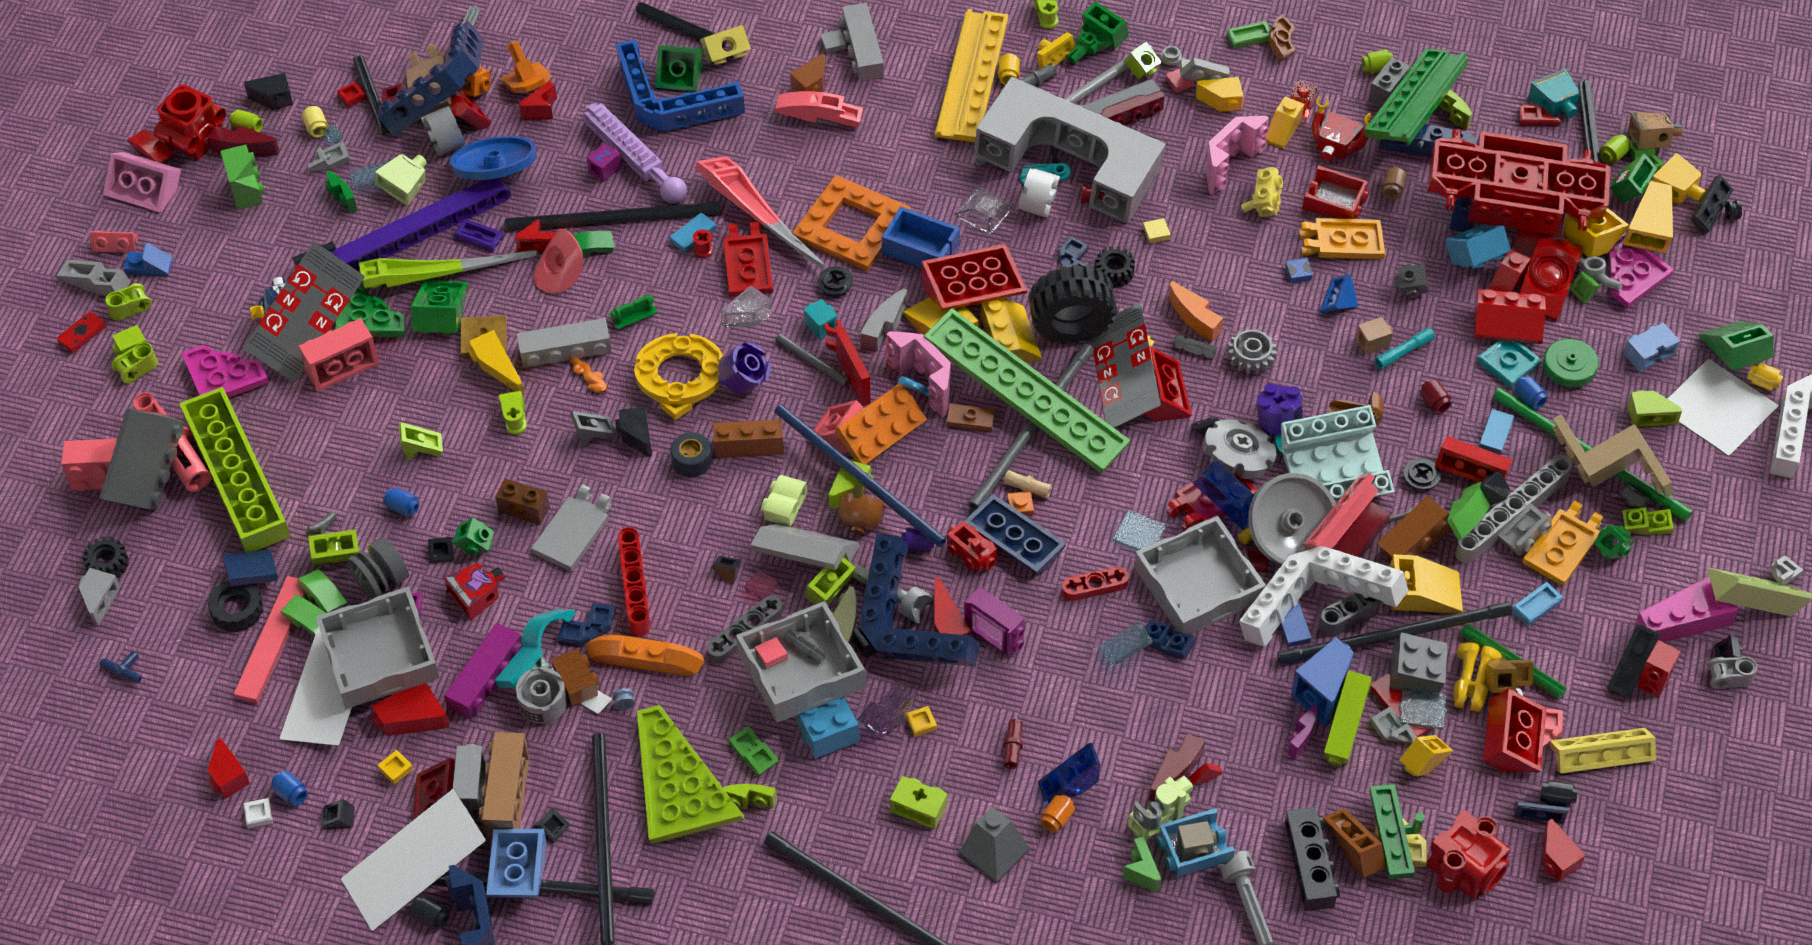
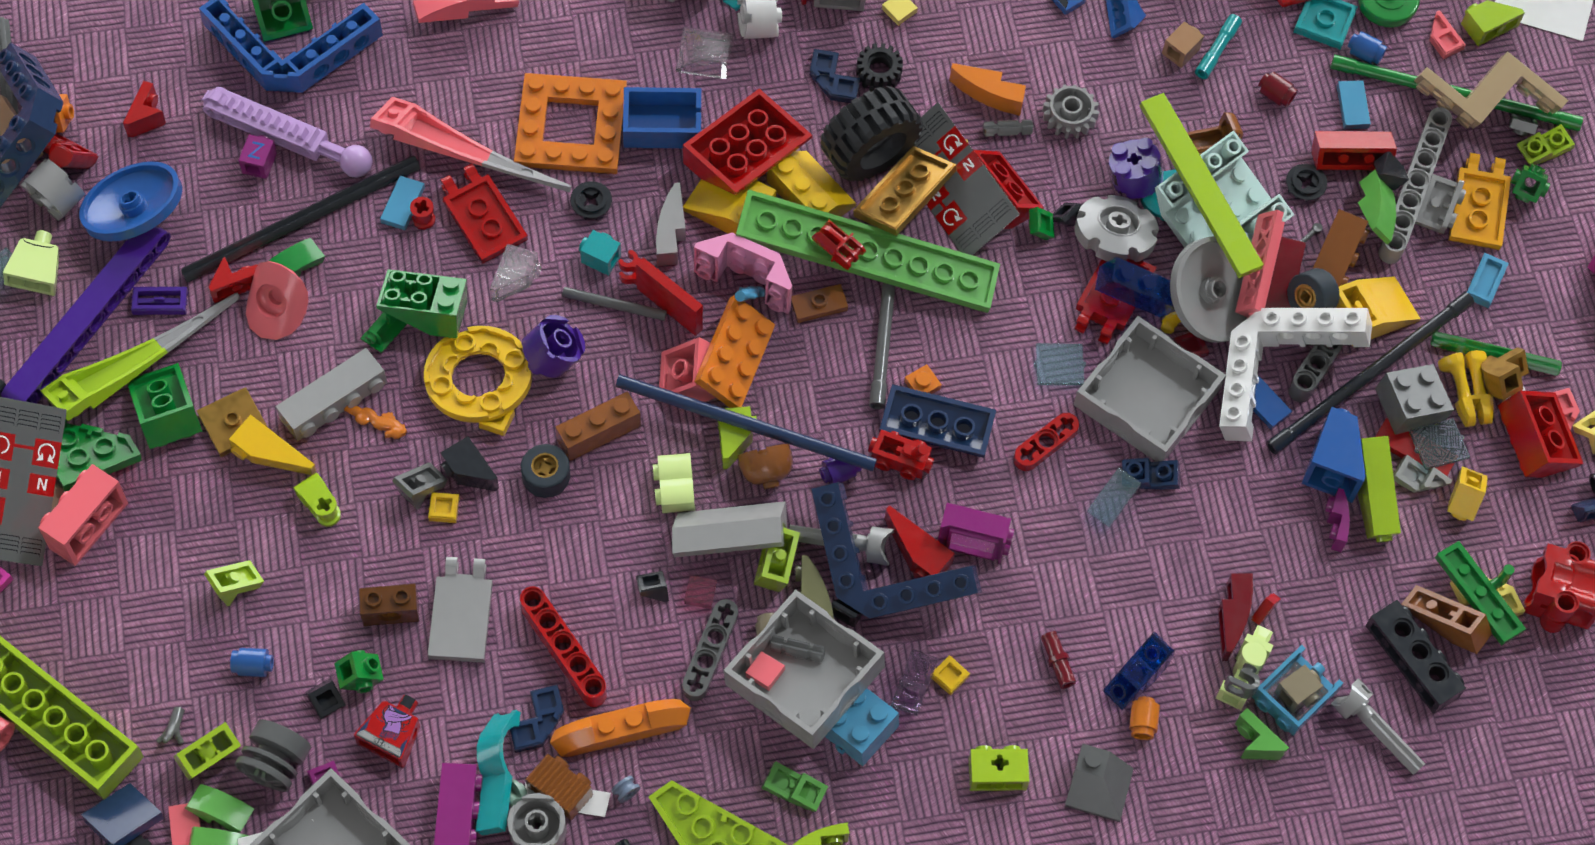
camera: 30 degrees left, 10 degrees up
(525, 75) = (110, 82): orange piece -> none
(602, 452) = (443, 507): none -> yellow tile
(667, 303) = (425, 301): none -> green slope
(1000, 371) = (836, 241): none -> red arm
(1027, 484) = (920, 357): tan pin -> none
(1079, 357) = (904, 190): none -> pearl gold tile
(1180, 423) = (1041, 223): none -> green plate
(1317, 434) = (1201, 185): none -> lime tile
(1374, 547) = (1313, 290): none -> black wheel
(1606, 410) = (1444, 37): none -> coral tile

